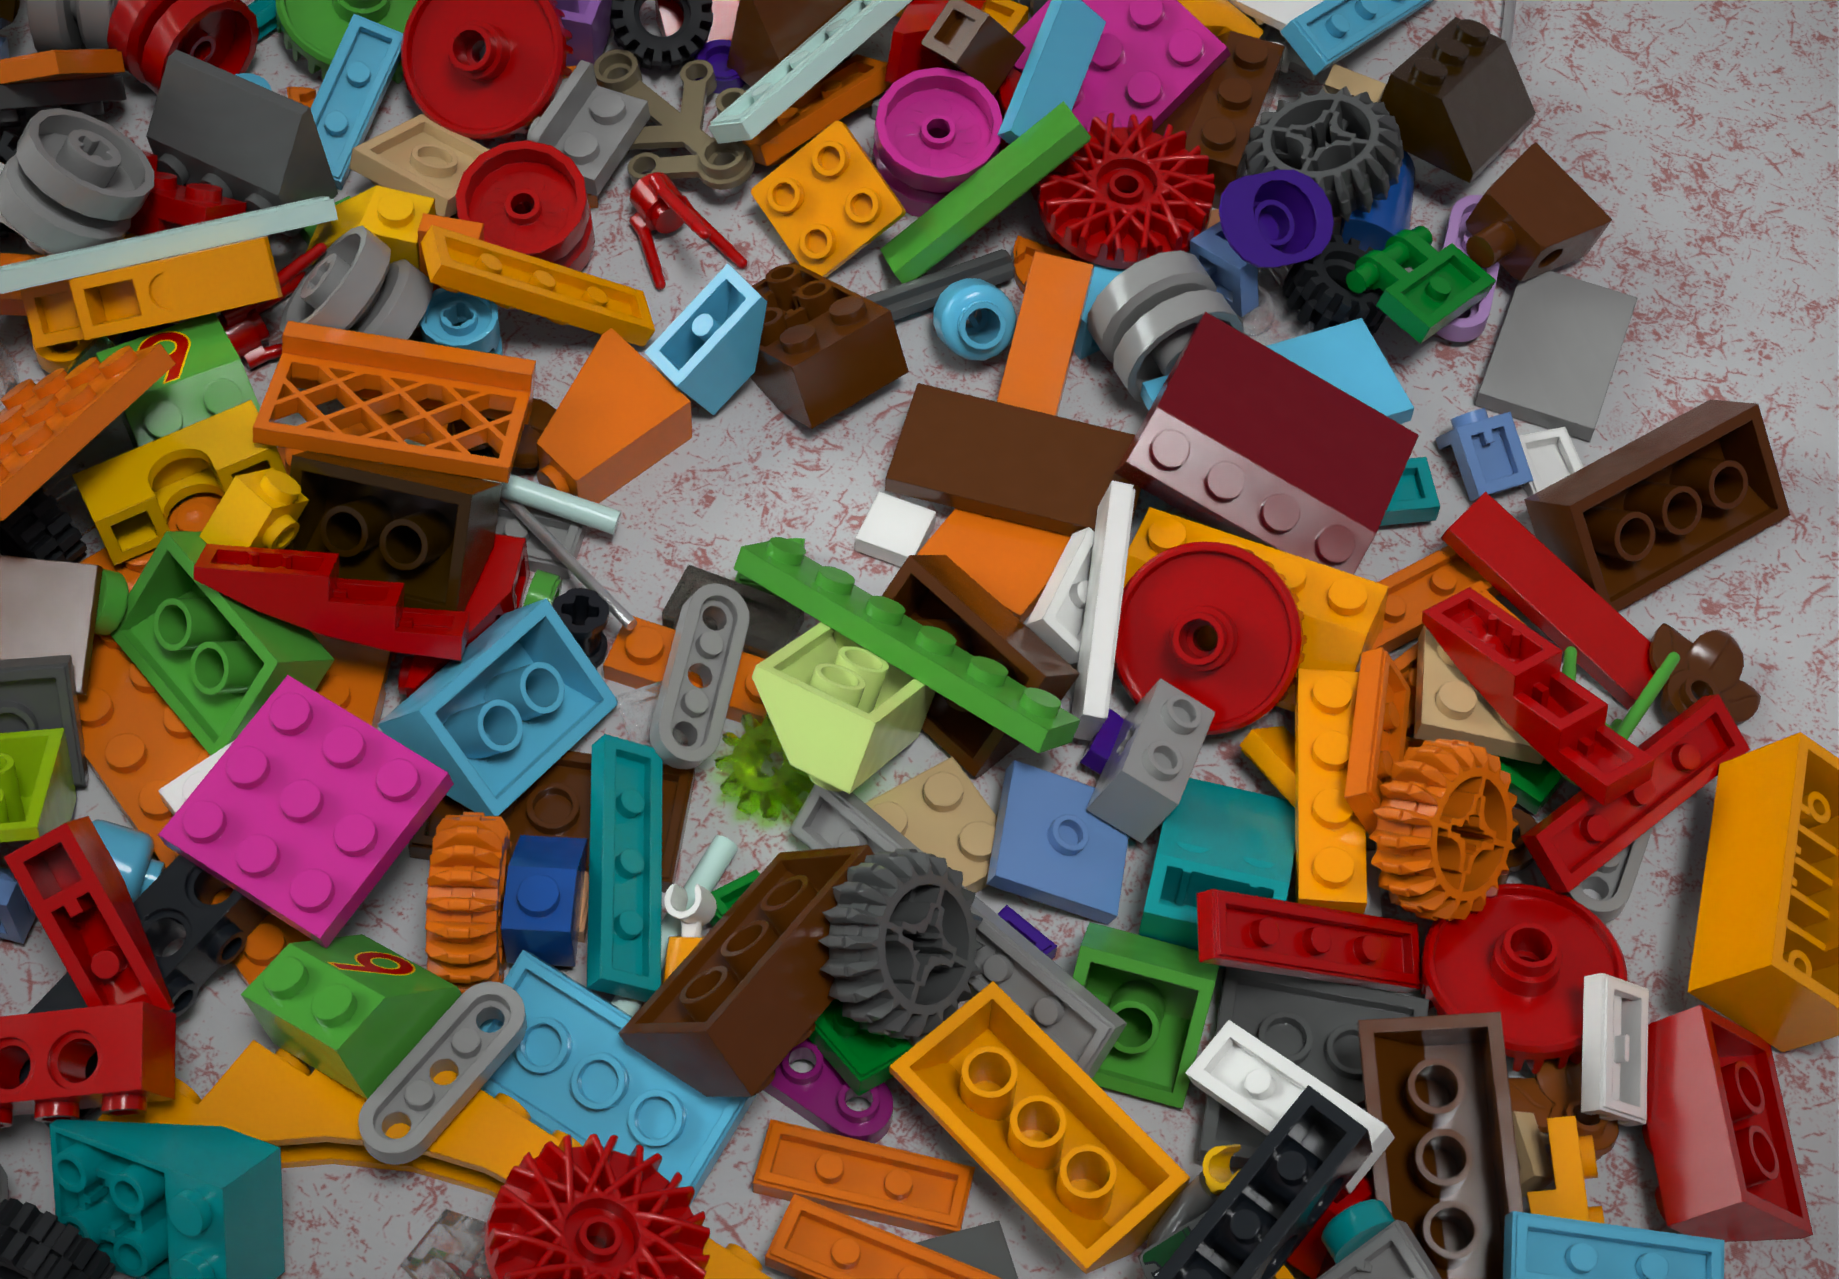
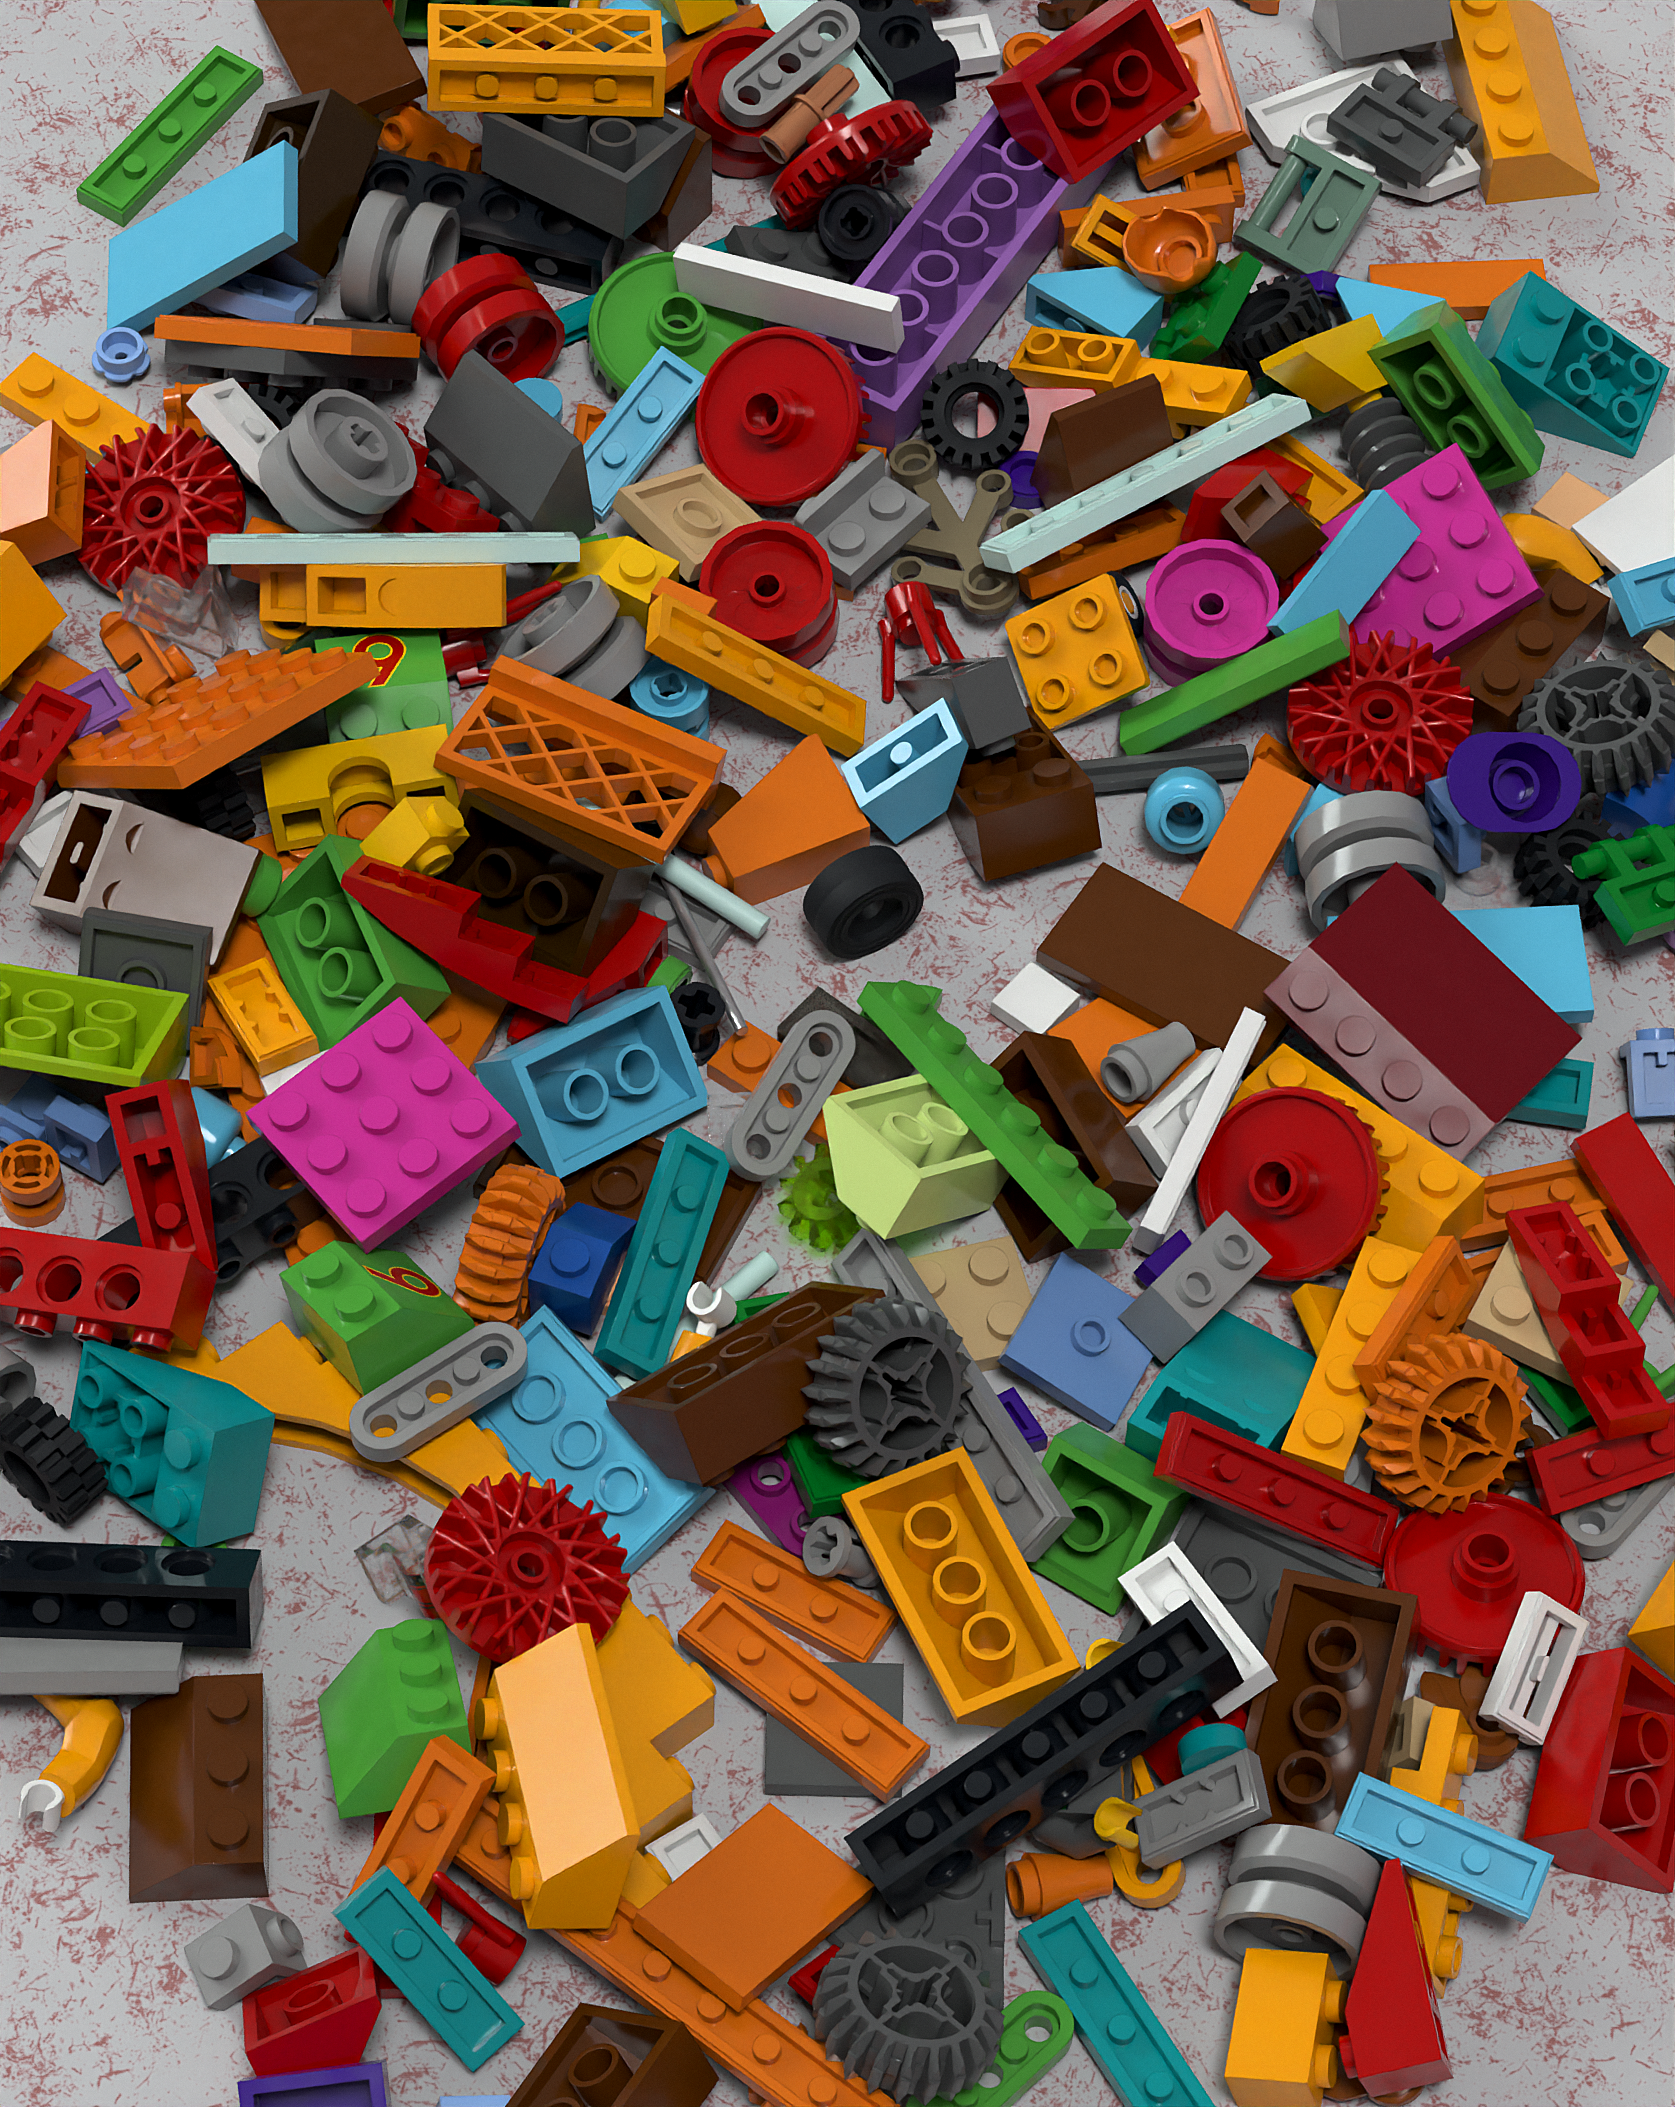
camera: 20 degrees right, 0 degrees up
(106, 788) = (213, 1060): none -> orange tile
(147, 731) = (263, 1017): none -> light orange plate
(706, 473) = (863, 901): none -> black tyre
(759, 250) = (980, 695): none -> dark grey slope
(894, 1110) = (846, 1552): none -> light grey bush
(1022, 560) = (1143, 1063): none -> light grey cone

